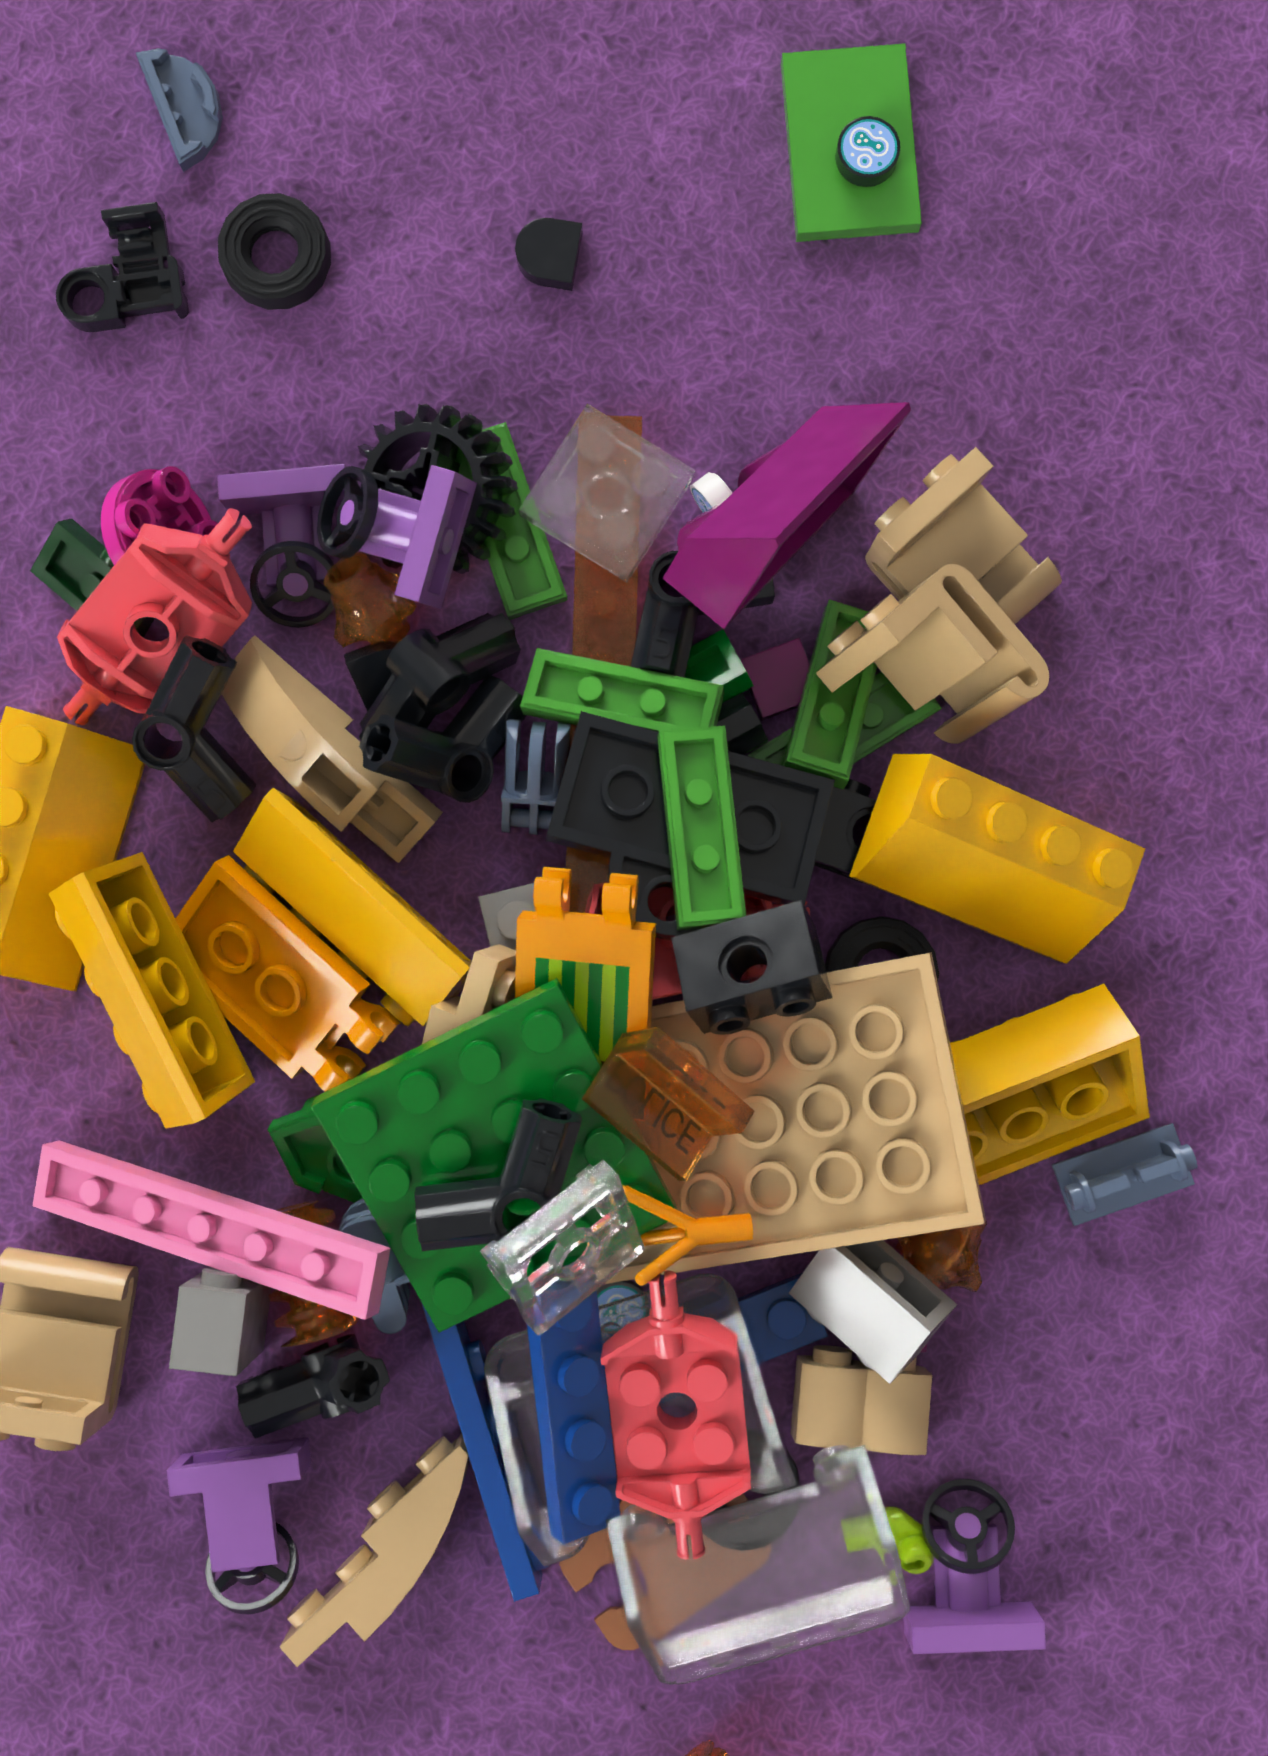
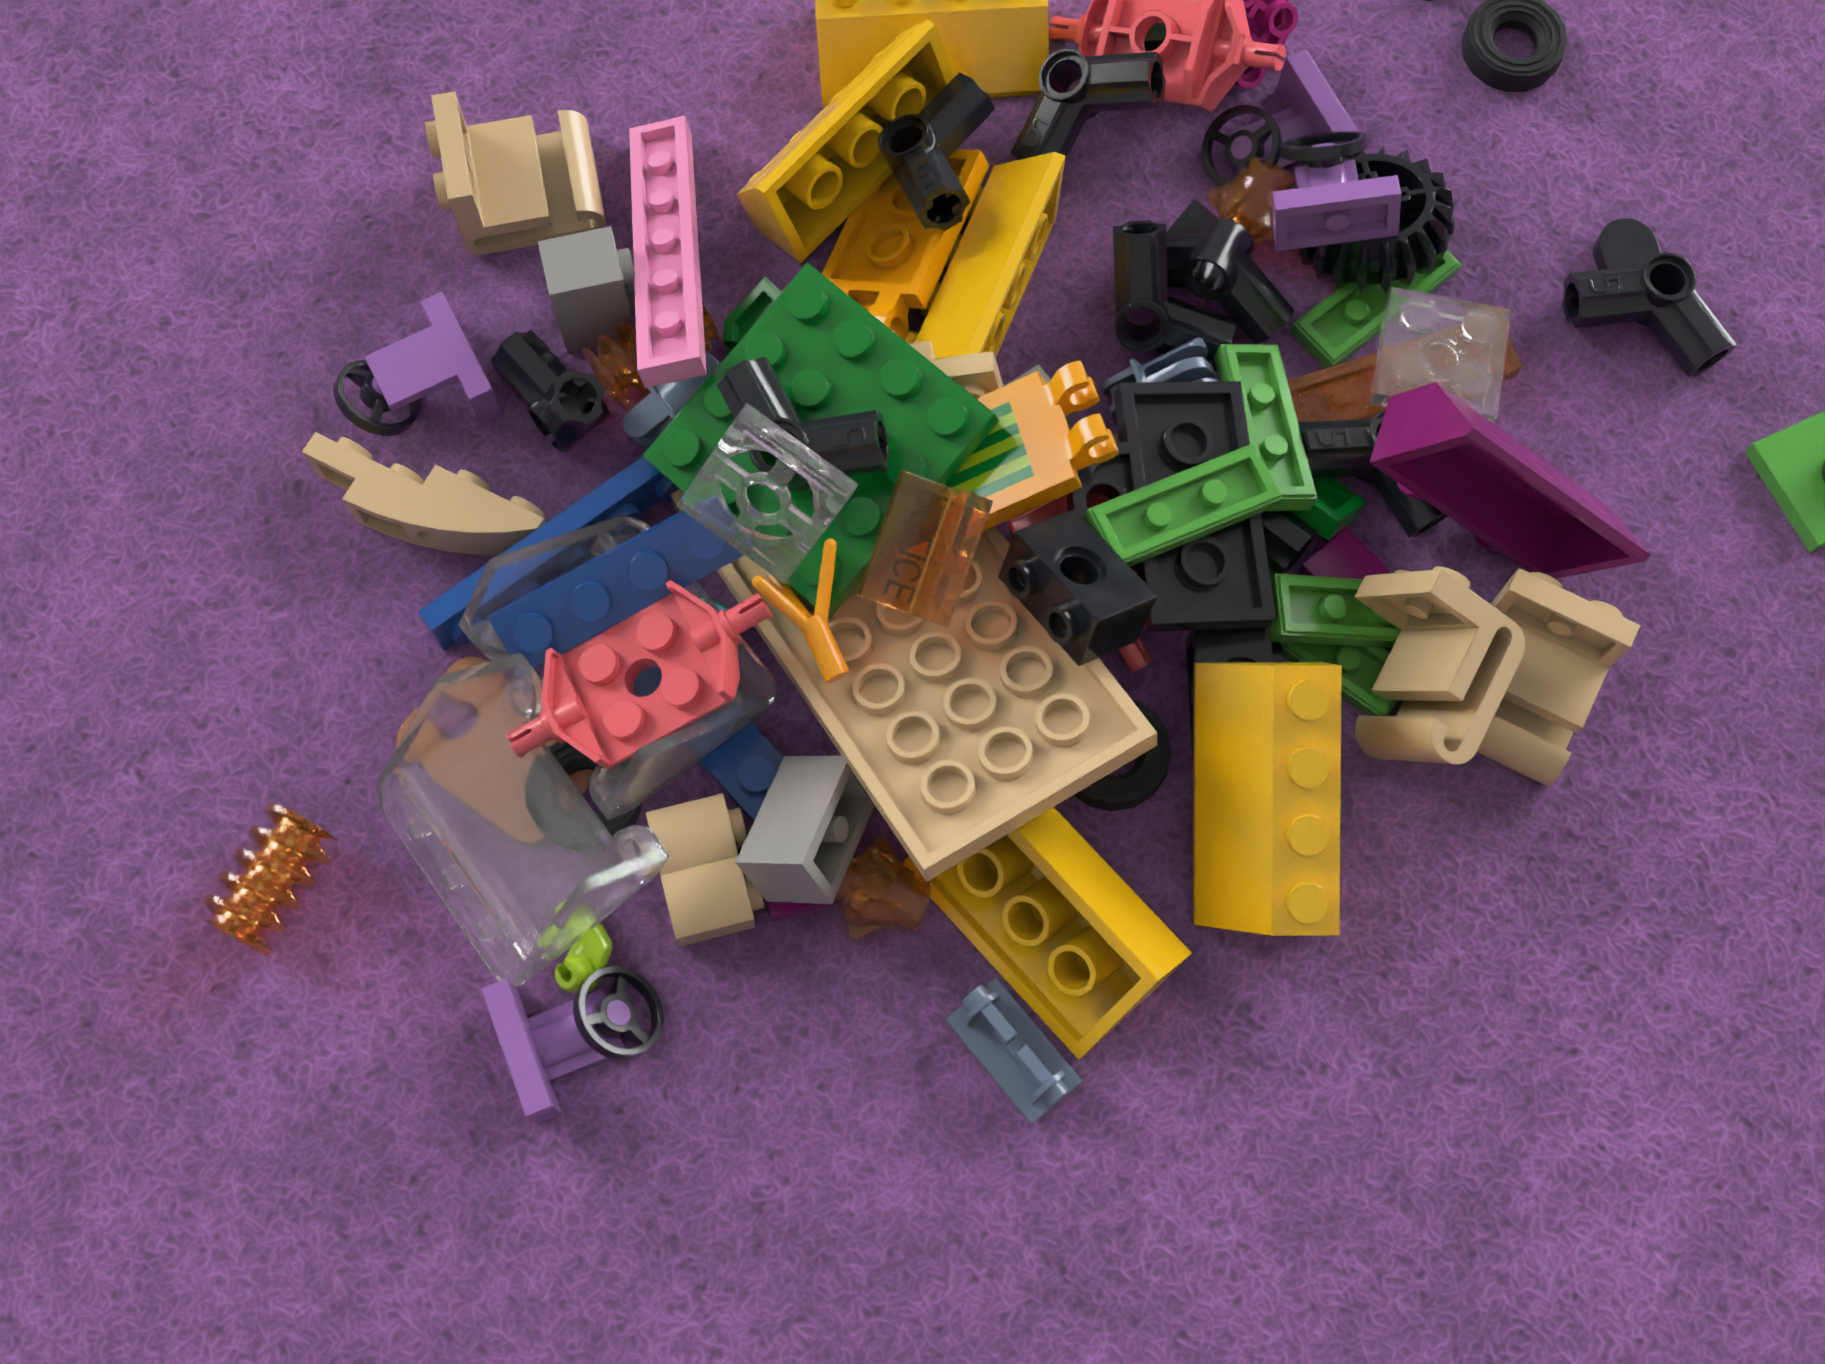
camera: 65 degrees right, 15 degrees down
(186, 907) = (922, 143): none -> black piece
(318, 757) = (1113, 188): tan slope -> none
(601, 279) = (1674, 315): none -> black piece

